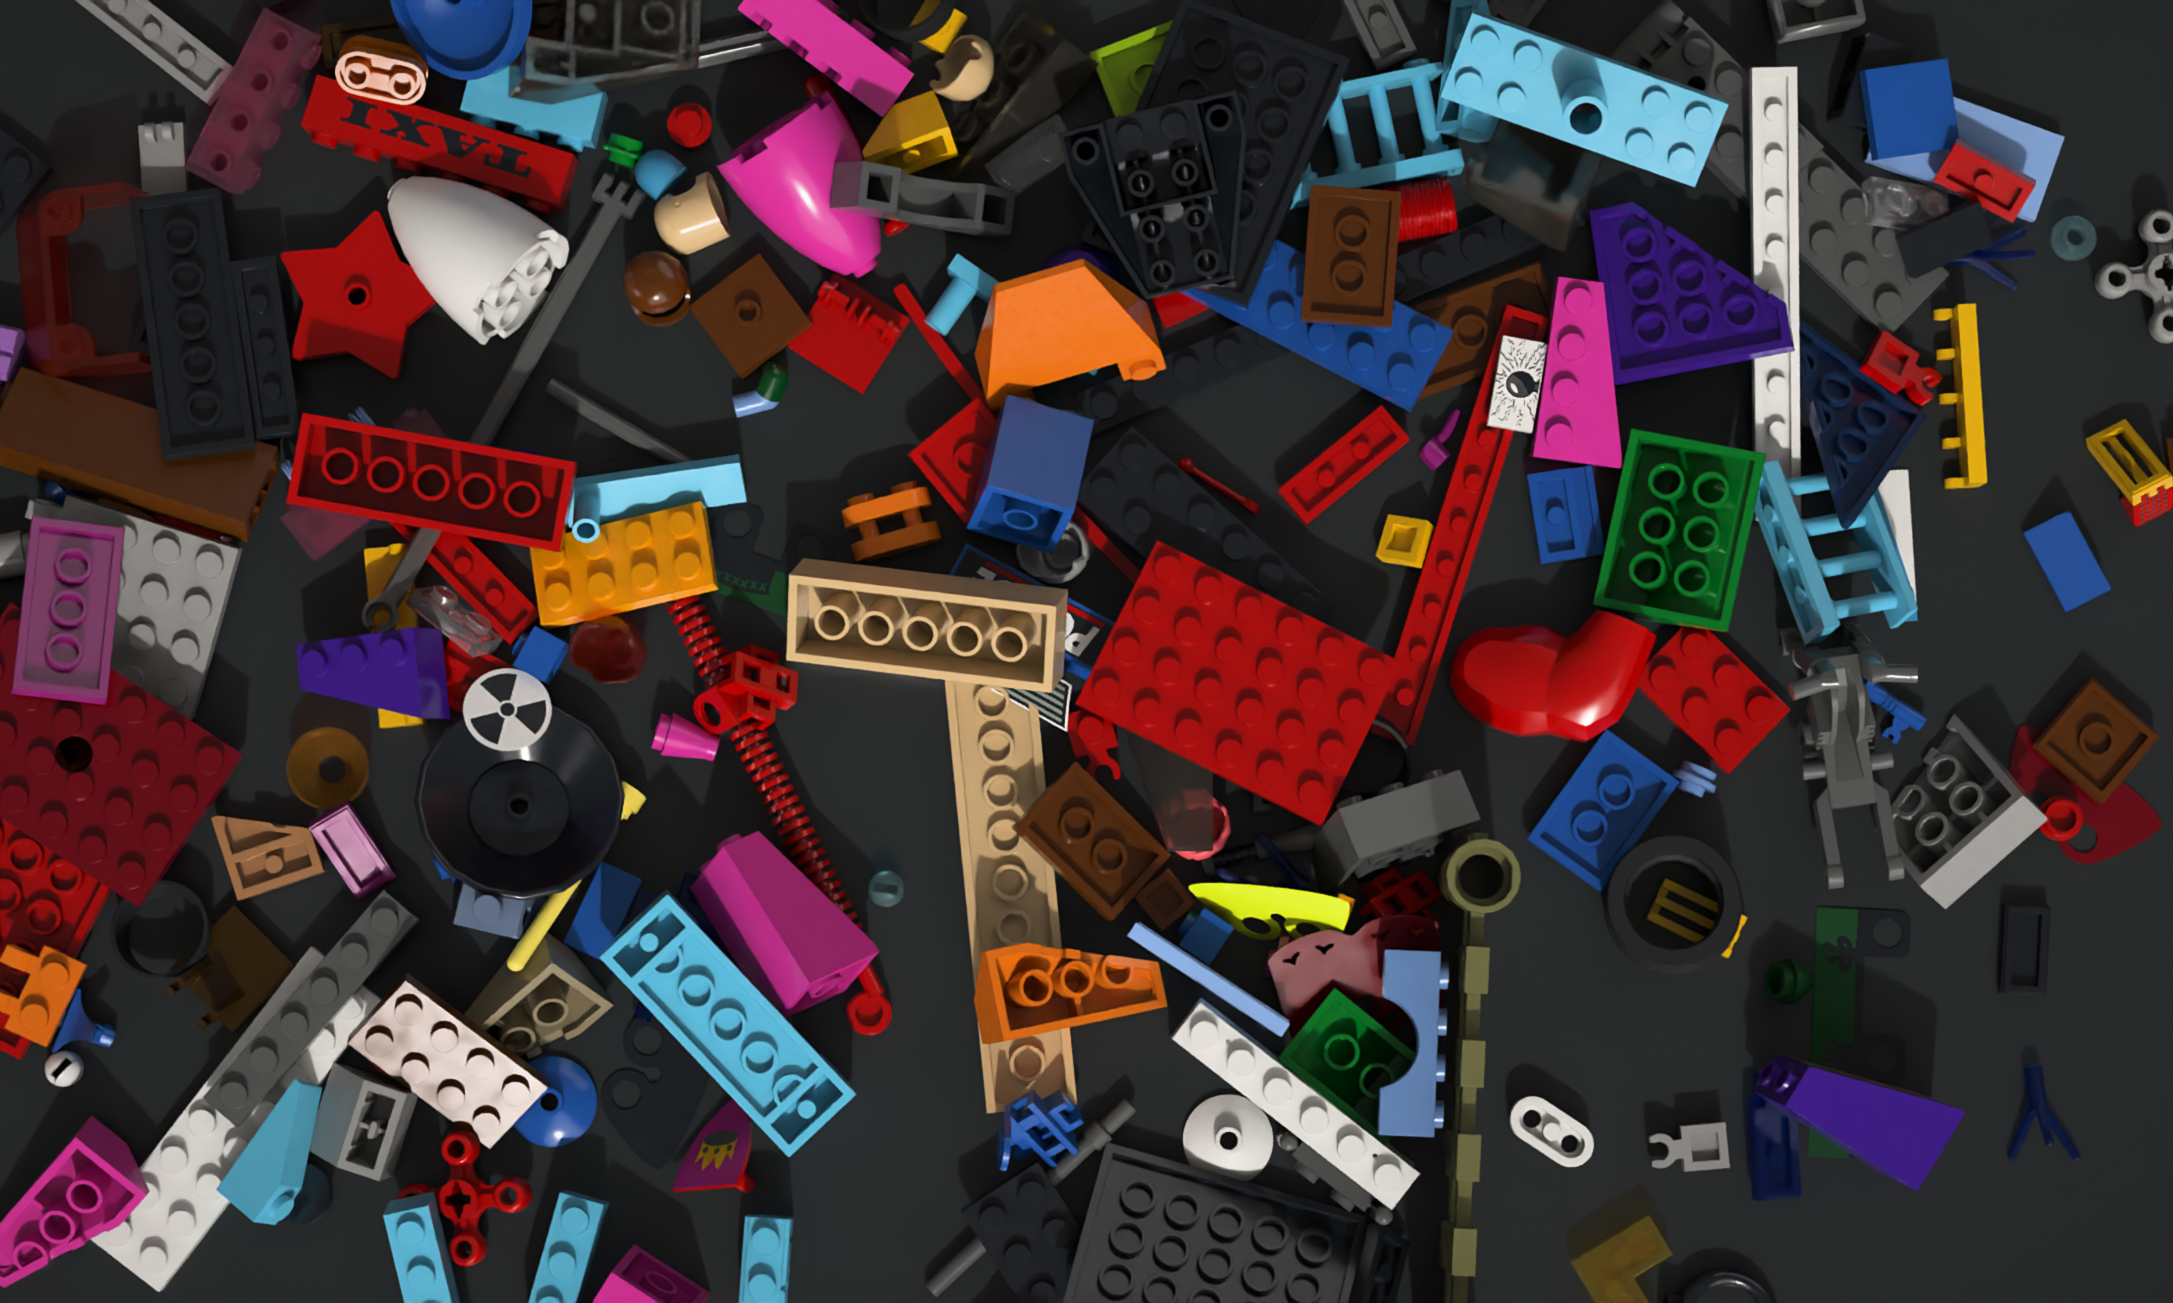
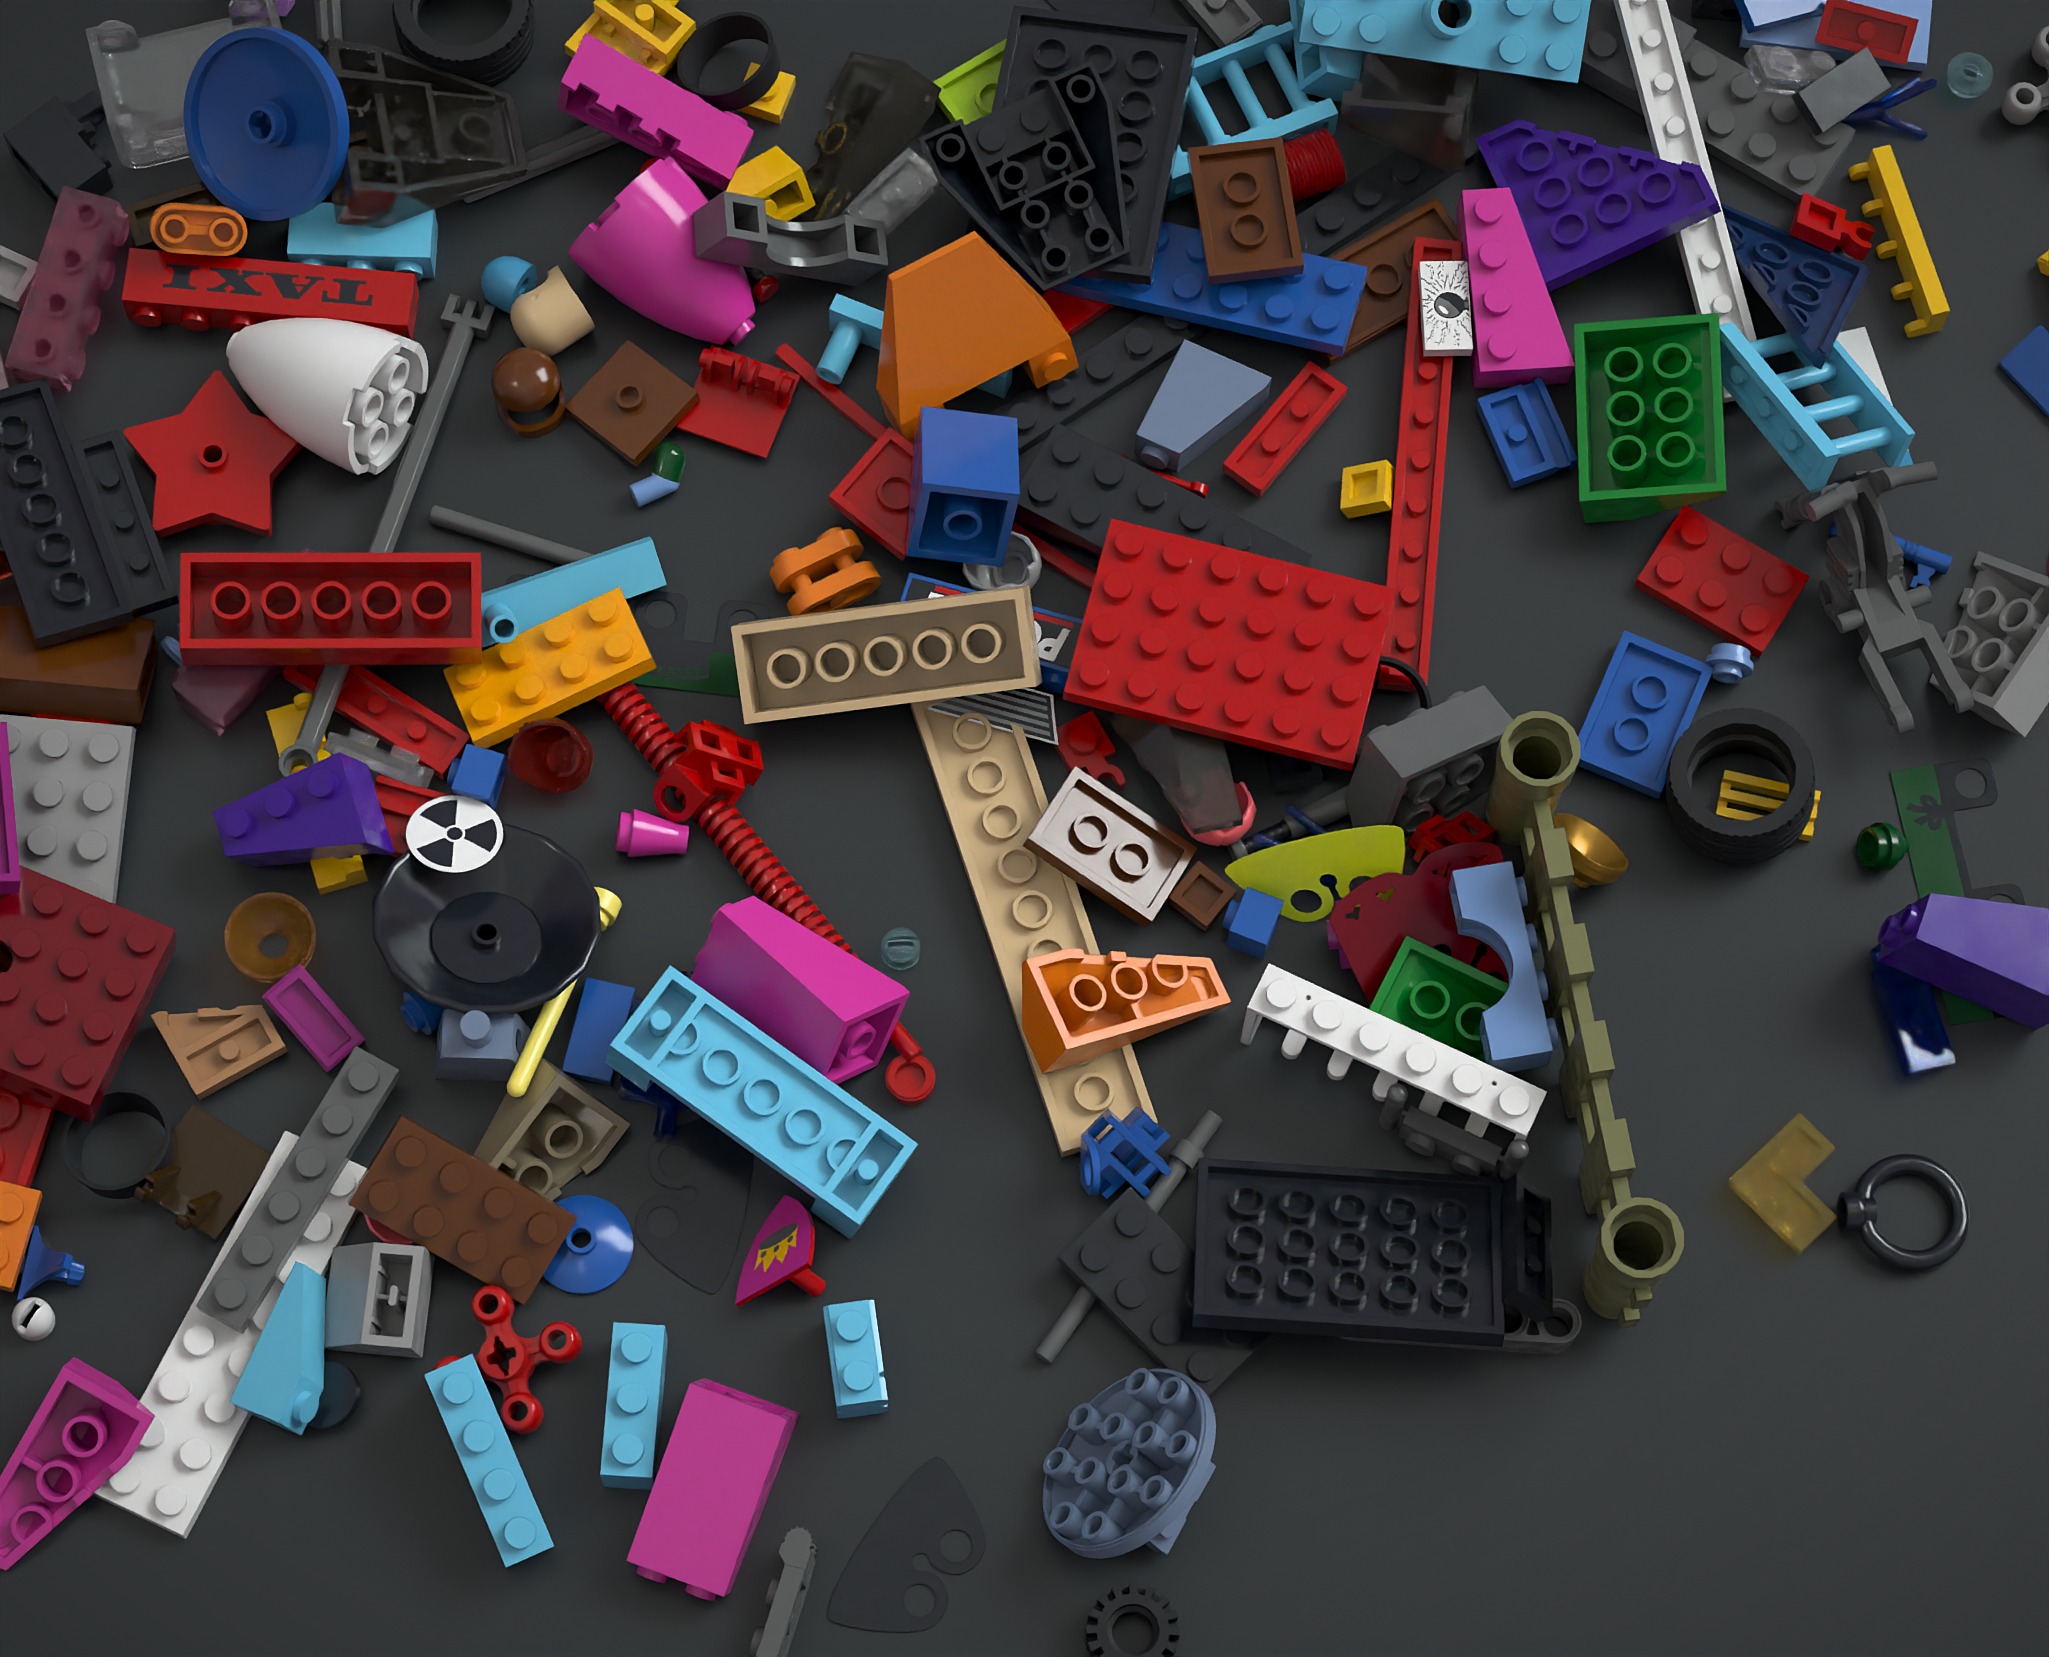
camera: 15 degrees left, 15 degrees down
(624, 150) = (465, 268): green plate -> none
(689, 125) = (529, 233): red plate -> none
(965, 69) = (805, 122): tan hair -> none
(1208, 979) = (1251, 950): light blue tile -> none
(1223, 1115) = (1305, 1143): white dish -> none
(1265, 427) = (1197, 406): none -> sand blue slope
(1434, 452) = (1376, 400): magenta hand -> none
(1519, 935) = (1592, 852): none -> pearl gold piece
(1549, 683) = (1553, 597): red piece -> none
(1550, 1131) = (1673, 1045): white plate -> none
(1698, 1147) = (1831, 1033): light grey plate -> none

